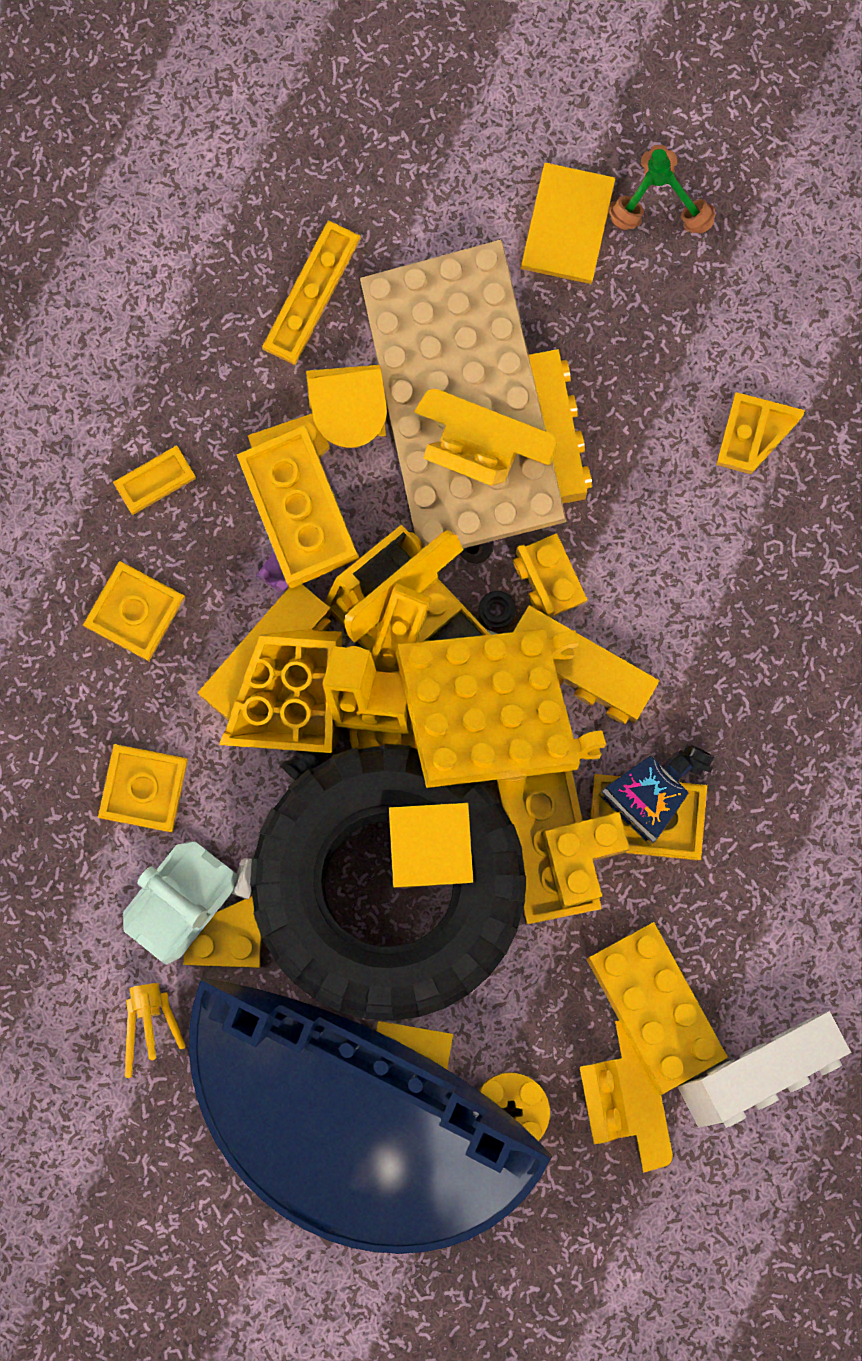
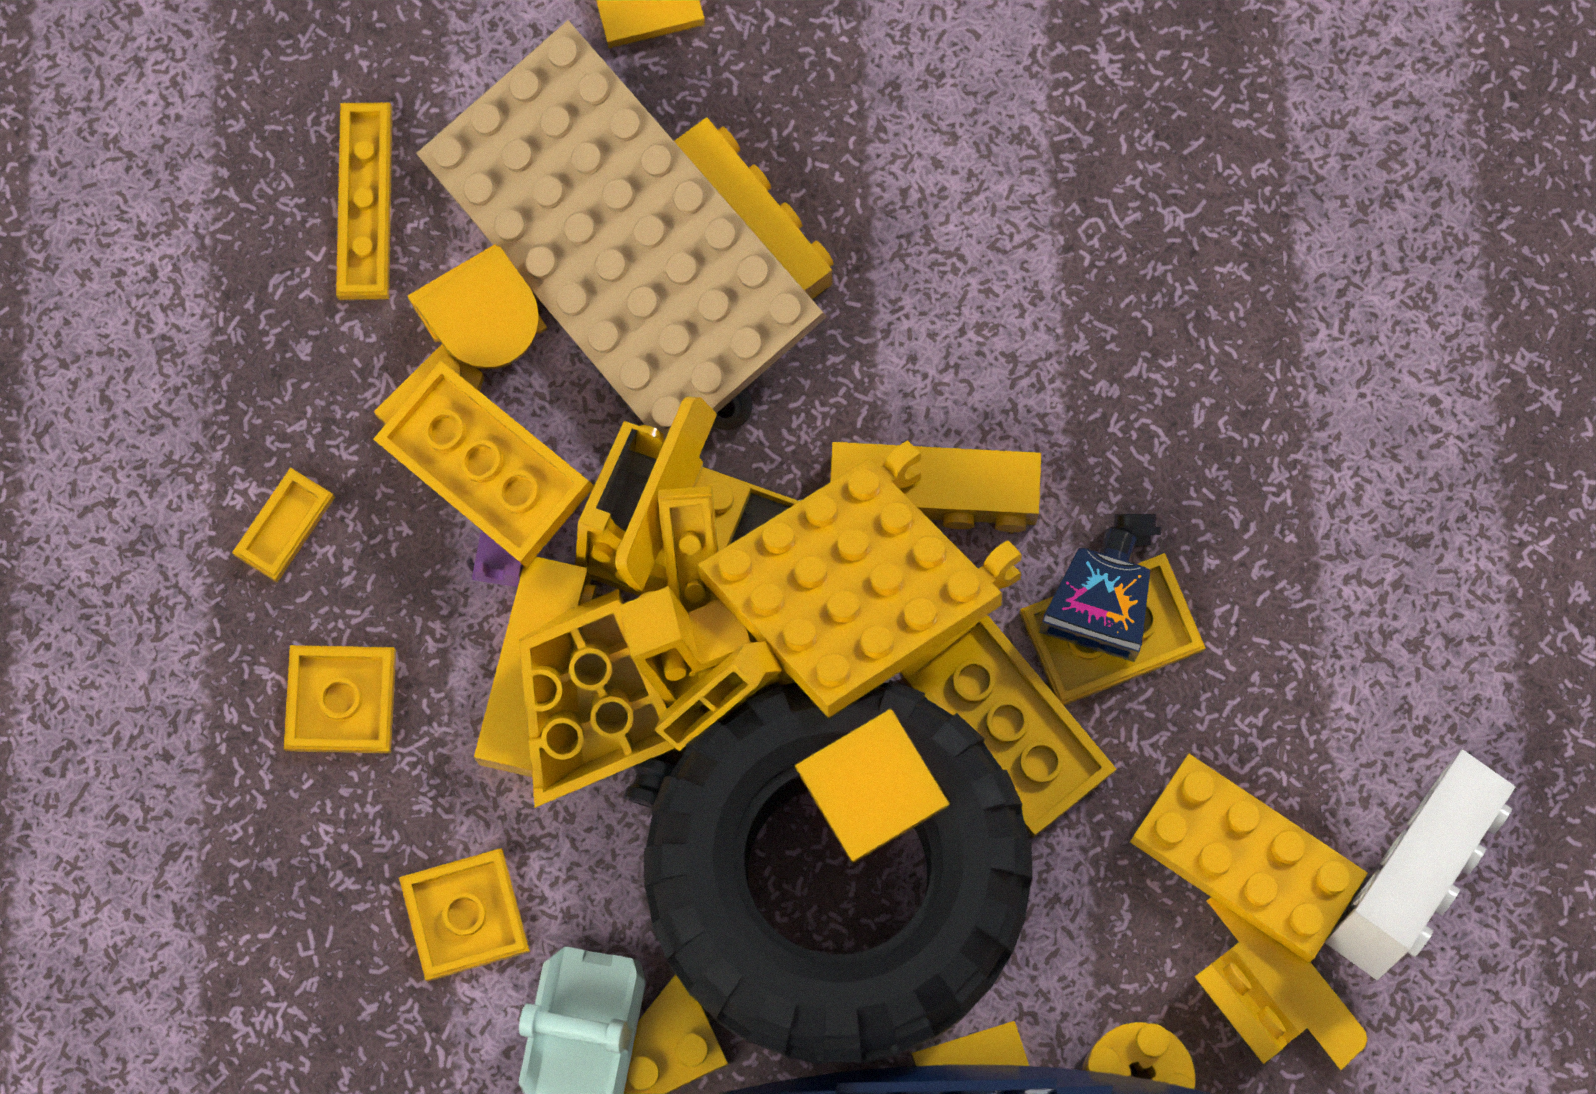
camera: 25 degrees left, 5 degrees down
(242, 885) = (652, 960): white tile -> none
(395, 727) = (751, 661): none -> yellow piece
(479, 439) = (669, 267): yellow plate -> none
(497, 597) = (794, 454): black plate -> none
(550, 576) = (837, 396): yellow bracket -> none
(574, 849) = (1048, 716): yellow brick -> none
(754, 431) = (995, 101): yellow wing -> none

